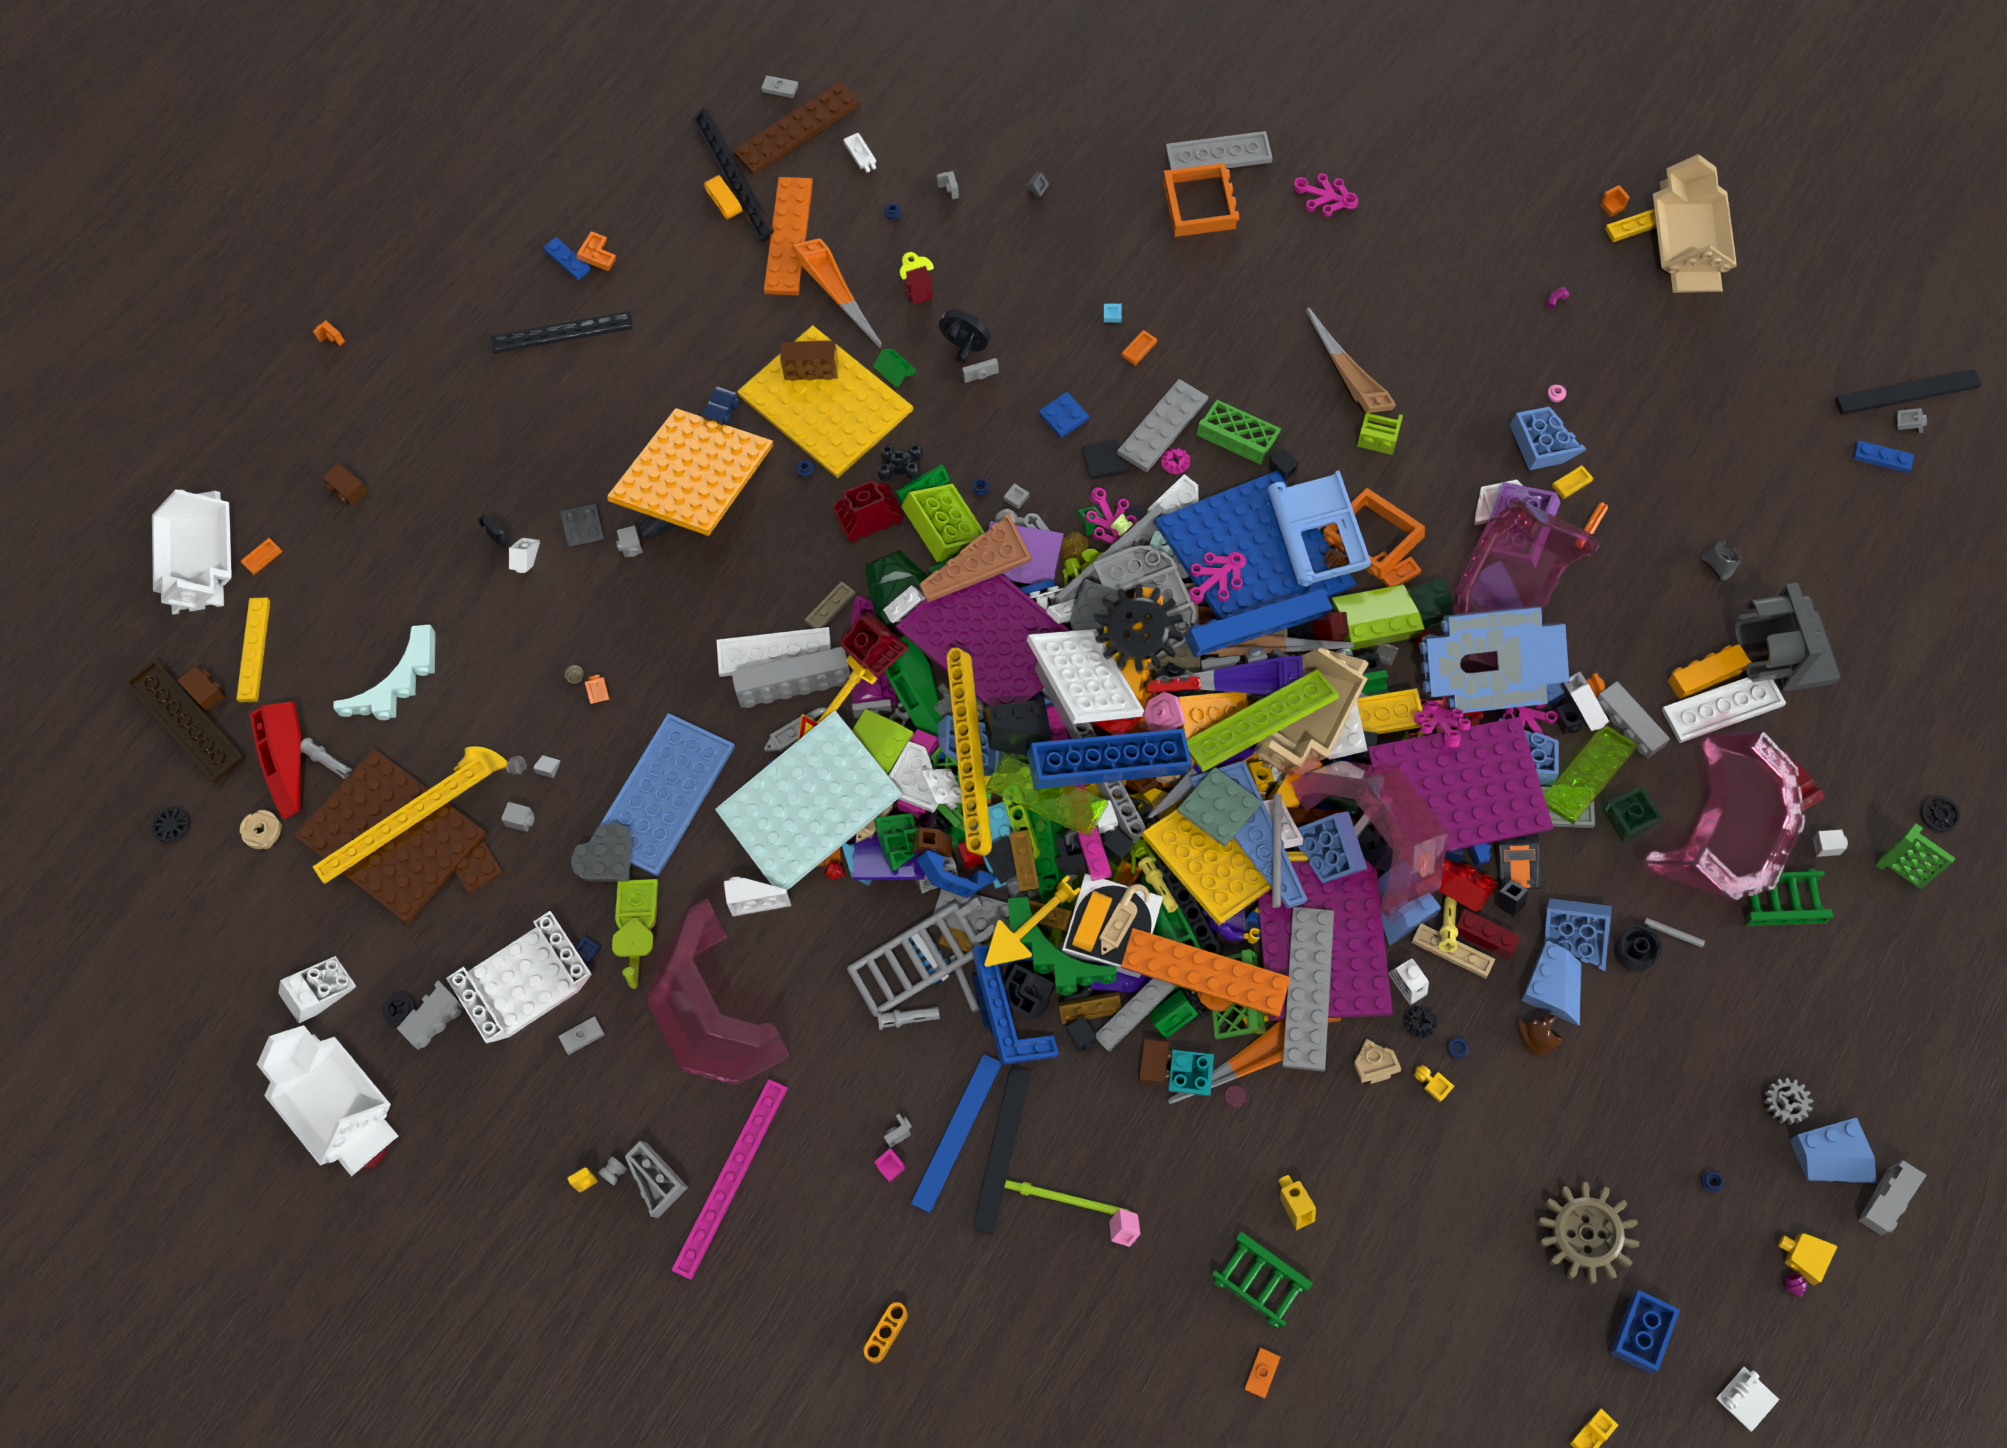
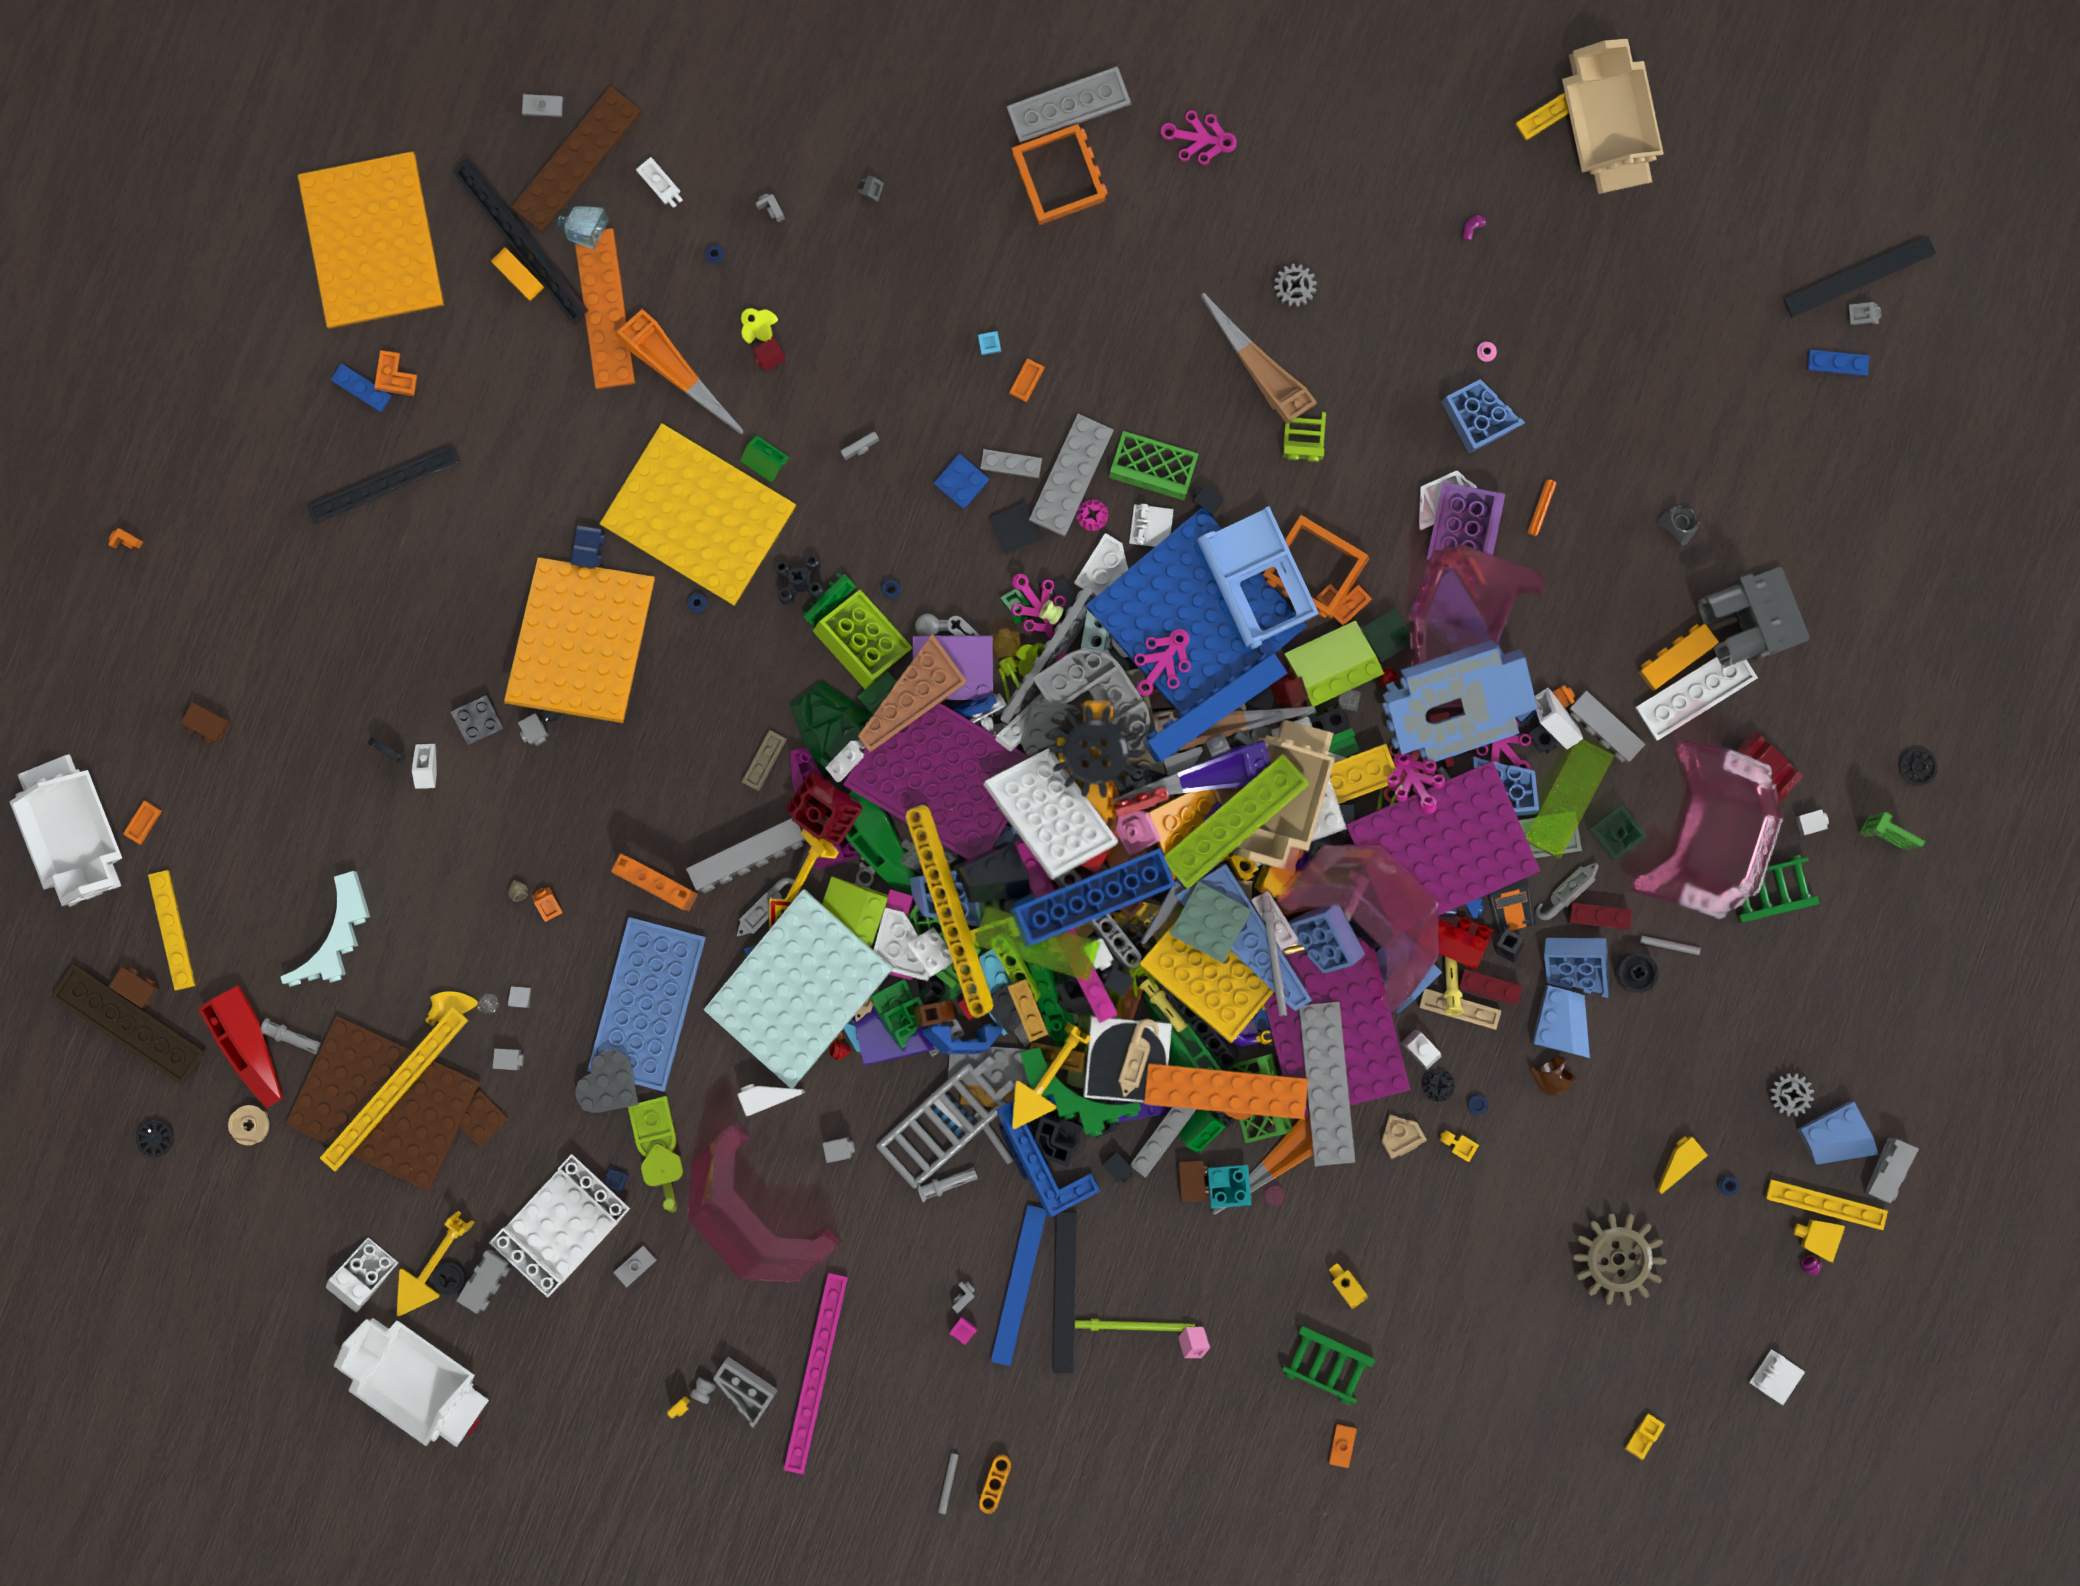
camera: 10 degrees left, 20 degrees up
(361, 1014) = (413, 1290): none -> yellow piece
(610, 156) = (370, 240): none -> light orange plate
(699, 679) = (654, 882): none -> orange window
(763, 649) = (719, 825): white plate -> none
(789, 168) = (584, 225): none -> clear light blue torso
(808, 959) = (838, 1149): none -> light grey brick
(809, 360) = (673, 481): reddish brown brick -> none
(837, 1323) = (948, 1483): none -> light grey bar
(867, 510) = (777, 642): dark red slope -> none
(879, 707) = (837, 869): light grey plate -> none
(964, 331) = (834, 408): black piece -> none
(1016, 496) = (931, 593): light grey plate -> none
(1090, 1007) = (1120, 1139): pearl gold plate -> none
(1092, 921) = (1108, 1066): light orange beam -> none
(1111, 408) = (1011, 464): none -> light grey plate
(1225, 475) = (1150, 525): none -> white hinge
(1335, 558) = (1281, 609): reddish brown gear -> none
(1391, 313) = (1301, 290): none -> light grey gear
(1572, 482) = (1516, 458): yellow tile -> none
(1578, 860) = (1569, 890): none -> light grey plate
(1606, 889) = (1599, 916): none -> dark red brick
(1614, 201) = (1521, 89): orange panel -> none
(1644, 1331) = (1679, 1339): blue brick -> none
(1665, 1145) = (1683, 1159): none -> yellow slope
(1817, 1223) = (1826, 1204): none -> yellow plate

